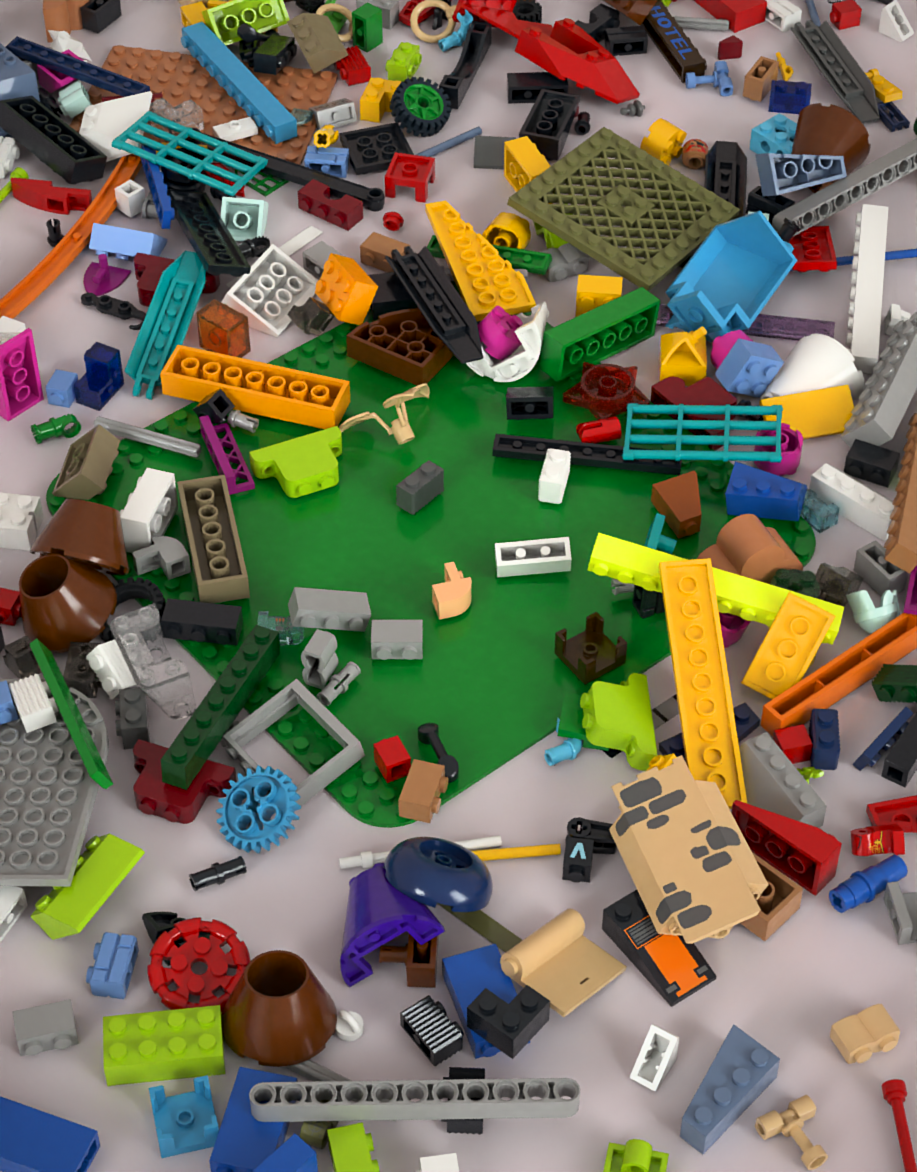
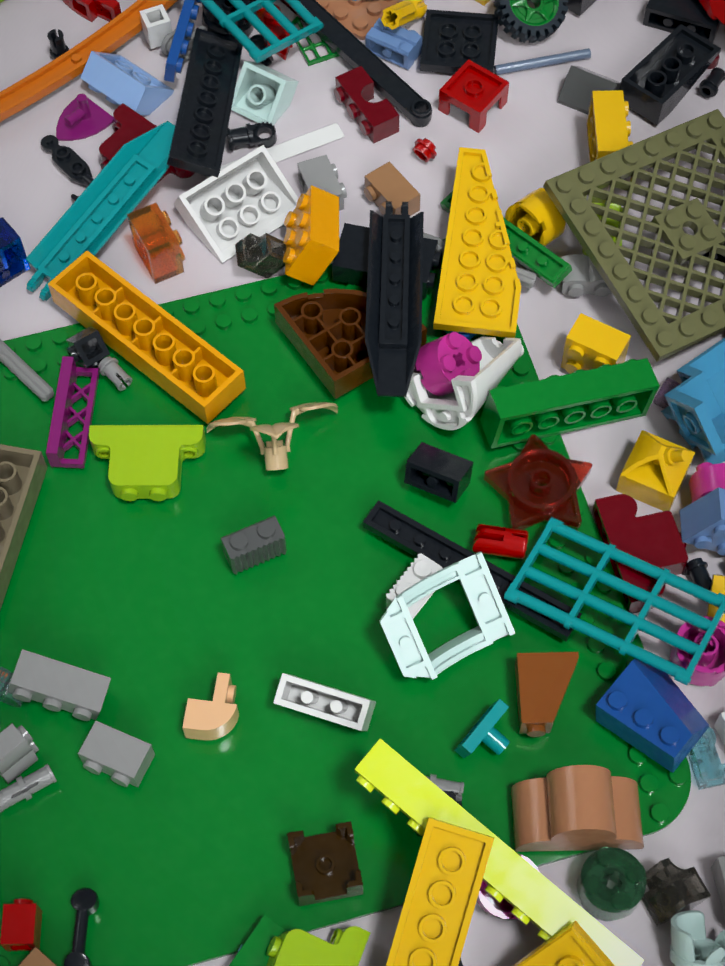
camera: 25 degrees right, 15 degrees up
(609, 460) = (483, 600): none -> light aqua wedge

